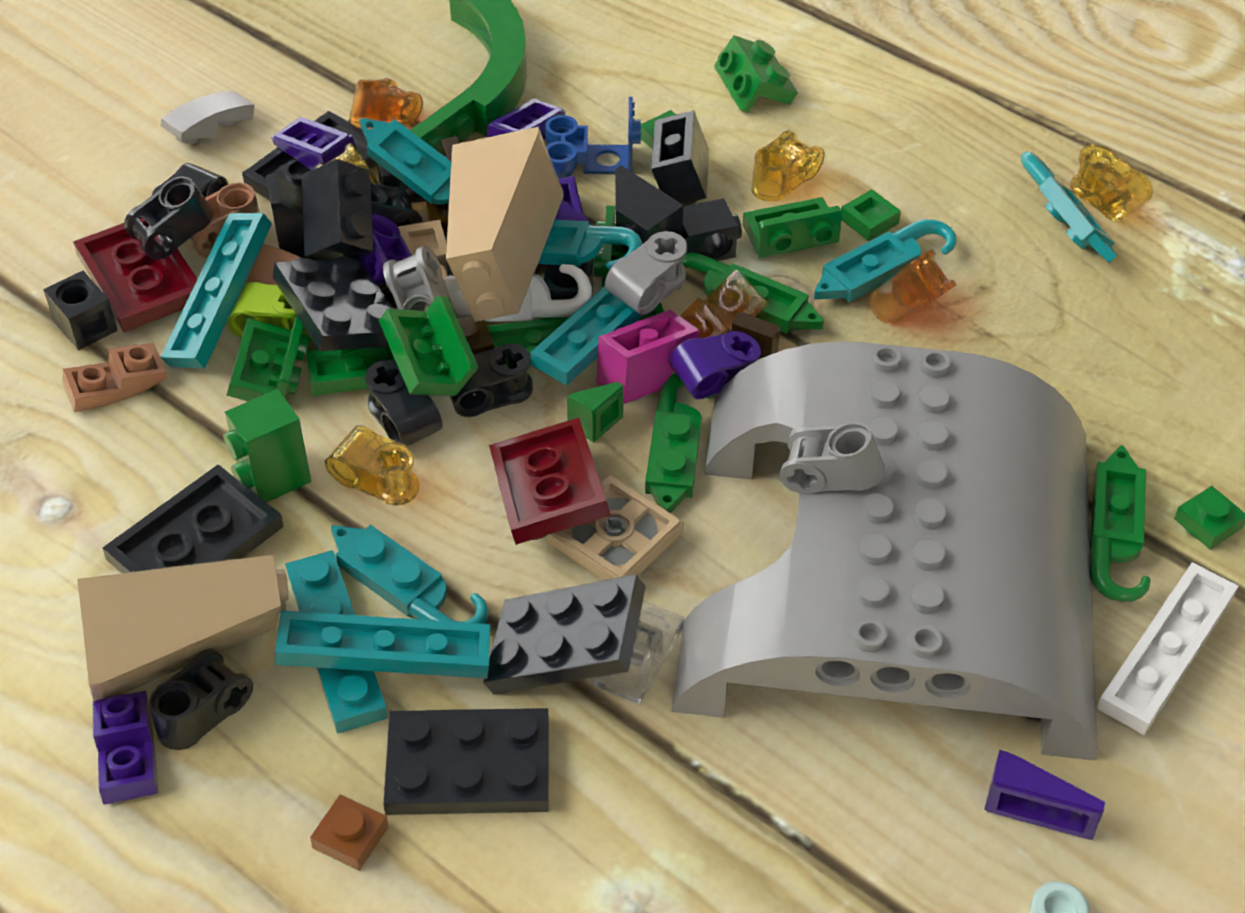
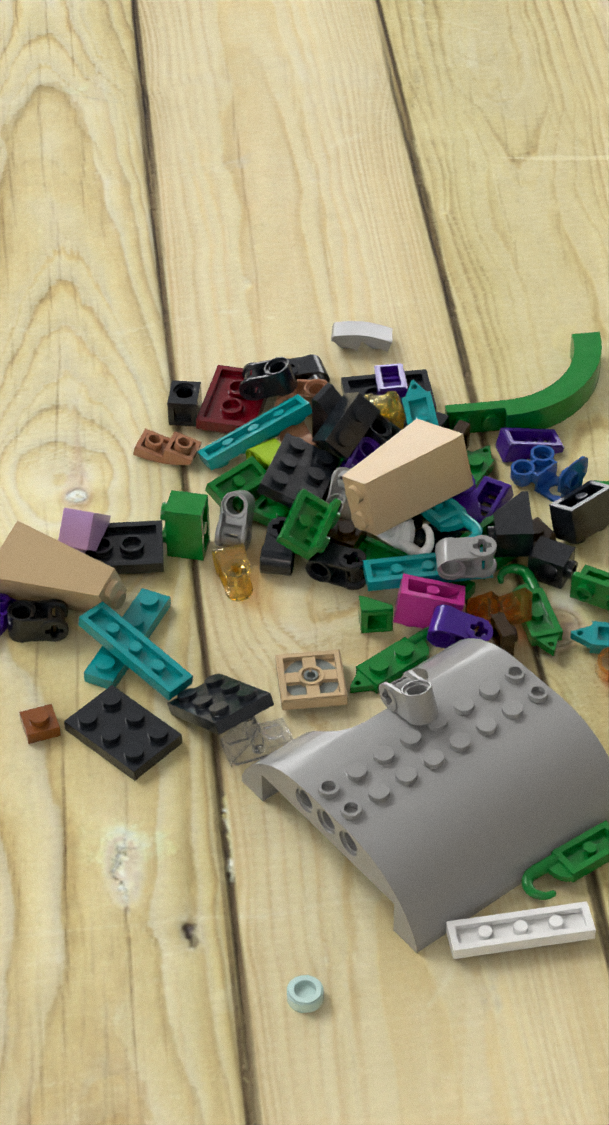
camera: 45 degrees right, 5 degrees down
(142, 537) = (82, 529): none -> lavender slope
(320, 411) = (234, 522): none -> light grey piece
(384, 102) = (458, 382): clear orange piece -> none
(396, 574) = (189, 631): teal plate -> none
(548, 481) = (301, 630): dark red plate -> none
(1040, 798) = (352, 936): dark purple slope -> none

